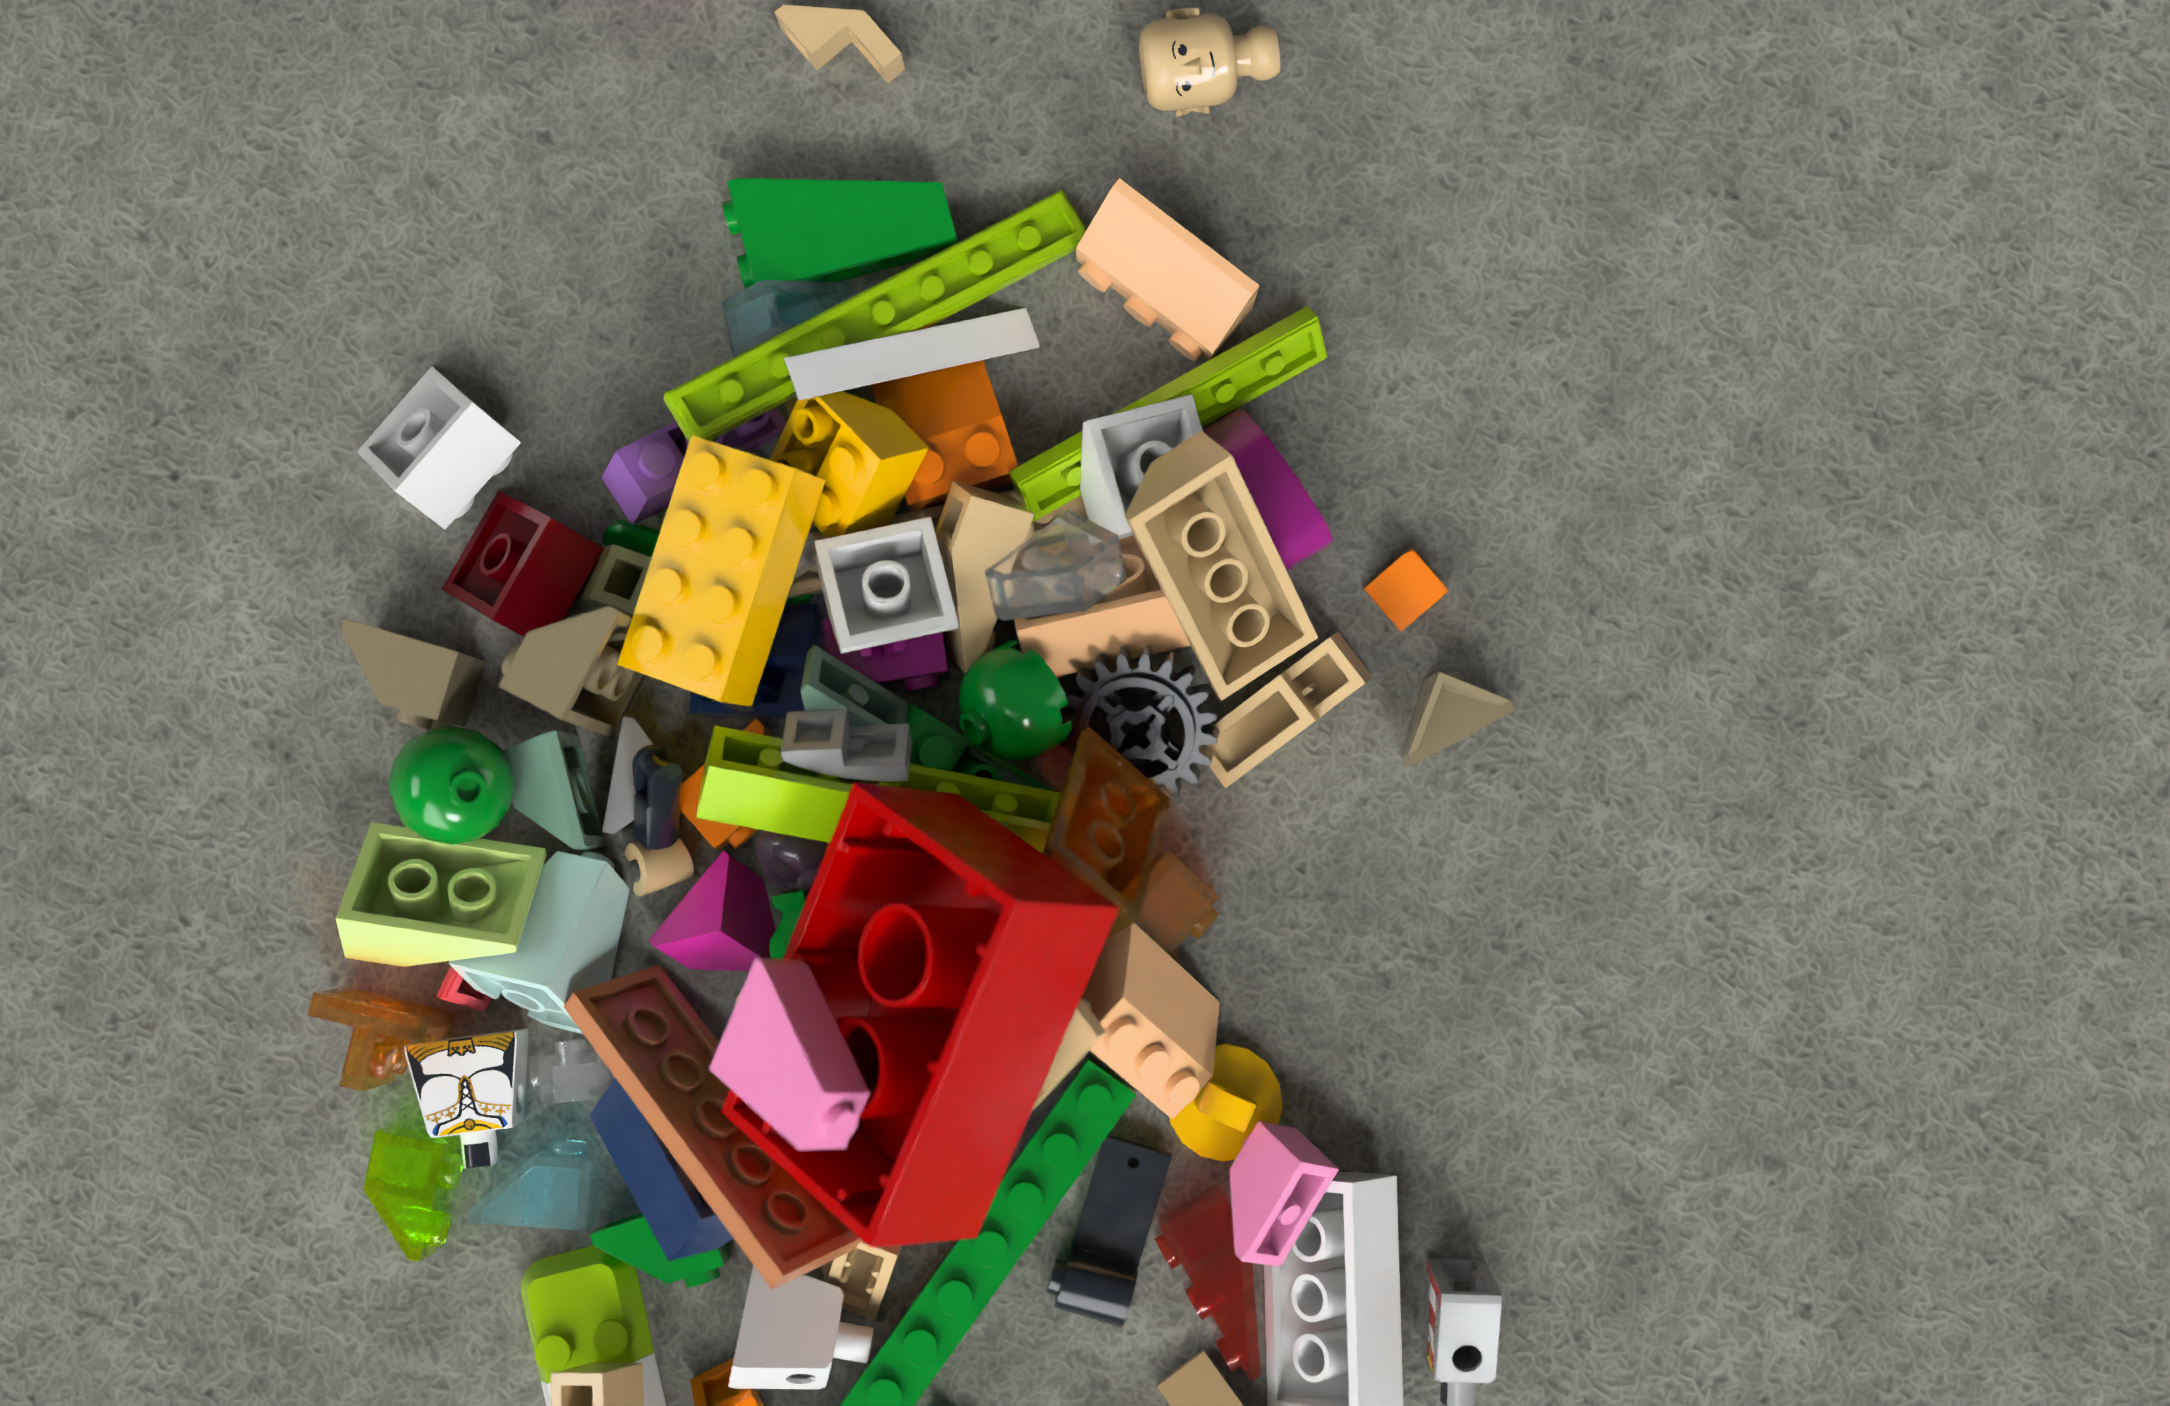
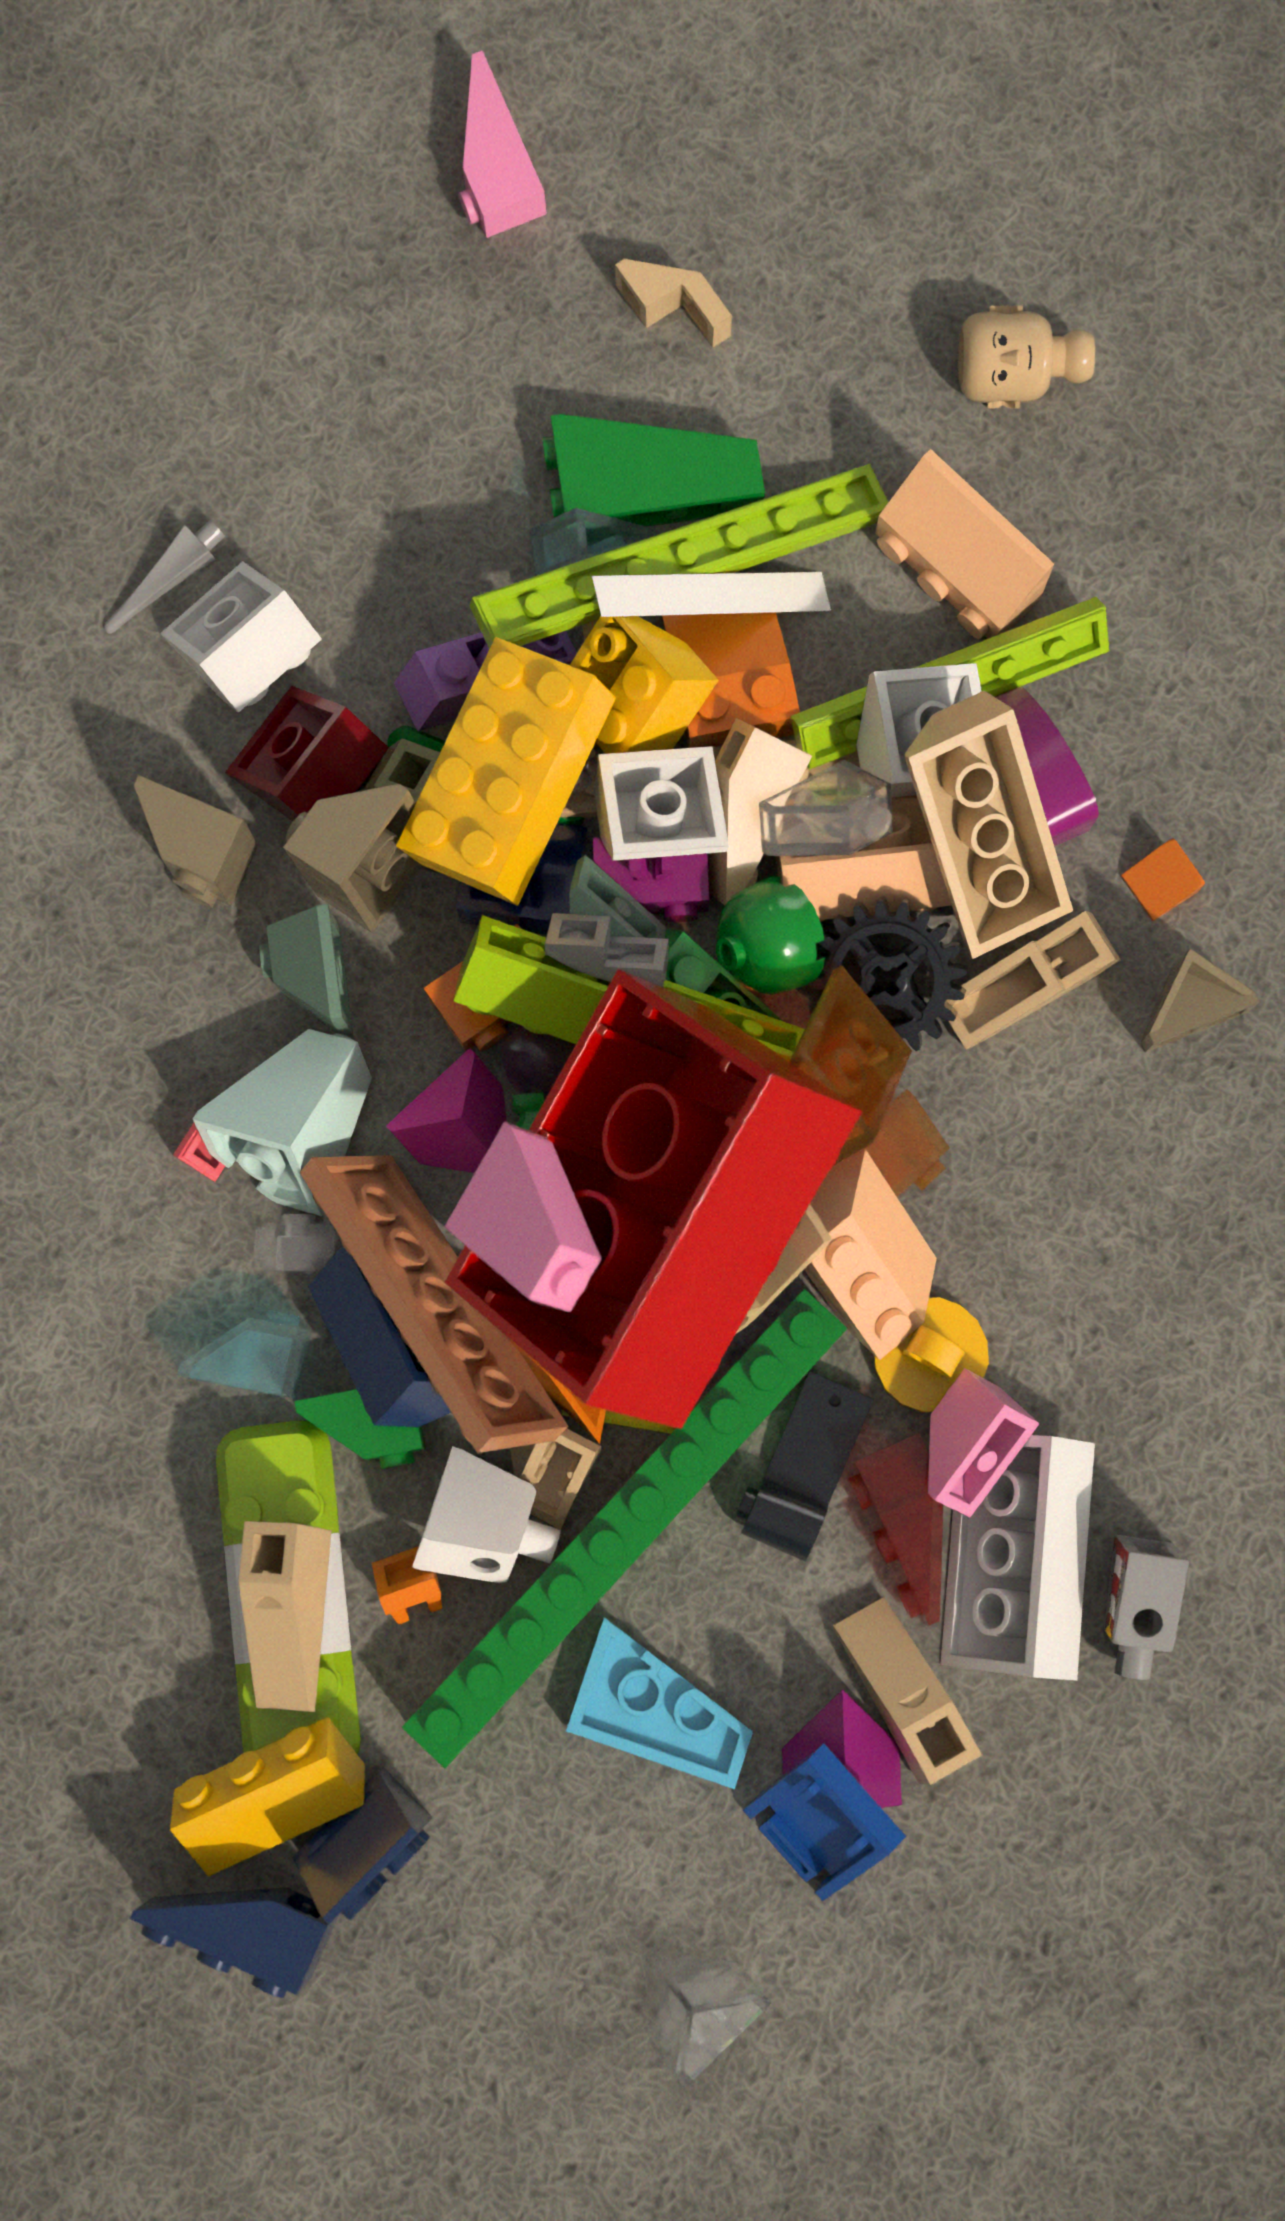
camera: 10 degrees right, 5 degrees down
(367, 373) = (182, 559): none -> light grey piece
(379, 1032) = (117, 1173): clear orange bracket -> none
(403, 1182) = (118, 1332): clear neon green slope -> none
(436, 900) = (187, 1055): yellowish green slope -> none
(451, 785) = (218, 948): green cylinder -> none
(471, 1089) = (195, 1249): torso -> none
(621, 793) = (395, 970): light grey slope -> none
(659, 849) = (408, 1043): black piece -> none

